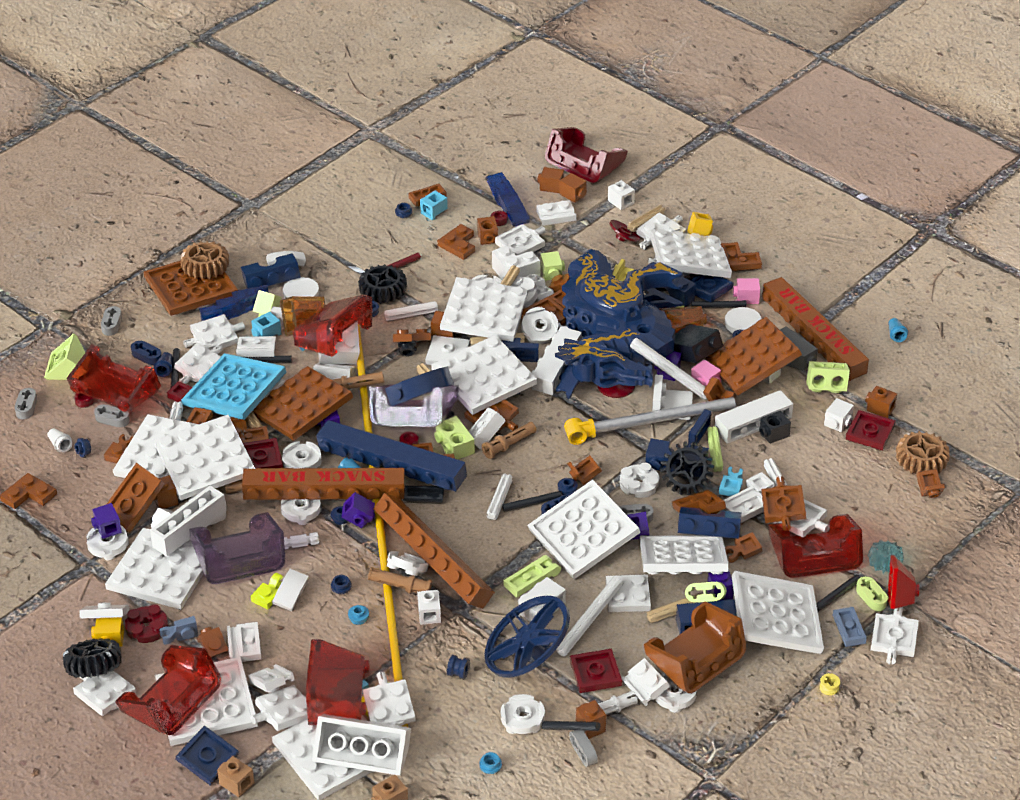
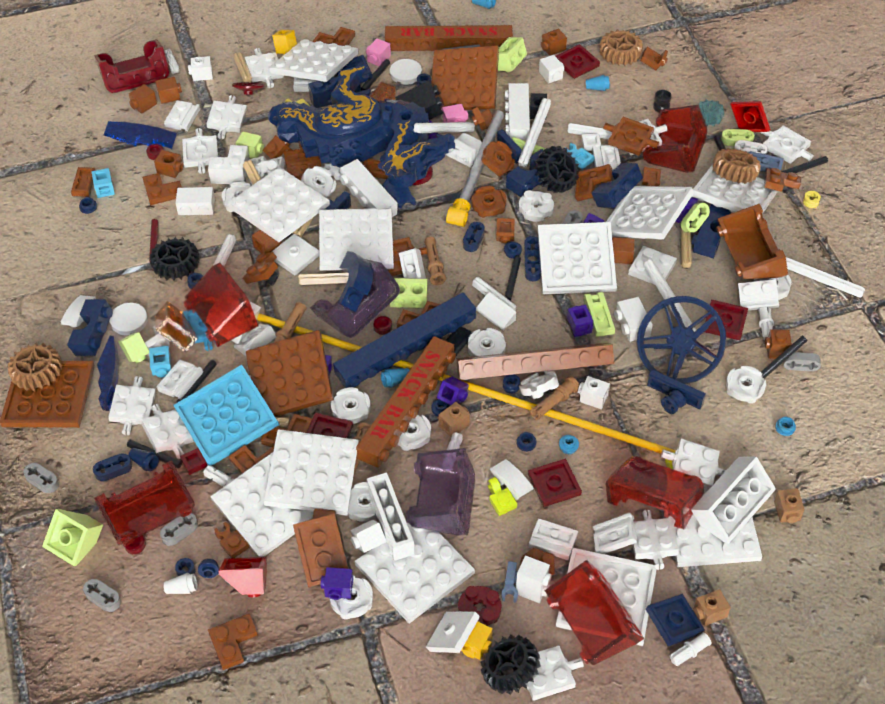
camera: 60 degrees left, 10 degrees up
(75, 433) = (185, 562): none -> dark blue bush
(88, 469) = (245, 574): none -> slope
(184, 630) = (533, 579): none -> white brick
(184, 778) = (690, 649): none -> white axle
(306, 619) = (554, 482): none -> dark red plate
(331, 526) = (454, 419): none -> medium nougat brick
(402, 544) = (509, 388): none -> dark blue bush
(443, 517) = (490, 336): none -> white plate
(456, 264) = (195, 201): none -> white brick
(474, 663) = (666, 384): none -> dark blue tile
(479, 506) = (496, 311): none -> white slope
(509, 562) = (580, 320): none -> dark purple brick
(562, 454) = (470, 235): none -> dark blue beam
(577, 238) = (226, 116): none -> white plate
(615, 454) = (483, 208): none -> dark orange plate
(616, 175) = (174, 68): none -> white axle
(626, 560) = (623, 250): none -> dark orange brick
(680, 417) = (491, 160): none -> dark orange plate
(719, 727) = (825, 278): none -> white axle
(733, 433) = (534, 132): none -> white axle
(810, 598) = (736, 165): none -> medium nougat gear
(832, 642) = (777, 180): none -> dark orange plate
(853, 458) = (598, 83): none -> dark azure cone
(866, 609) = (750, 146): none -> white beam
(868, 513) = (662, 100): none -> black wheel
(876, 663) = (807, 165): none -> black bar

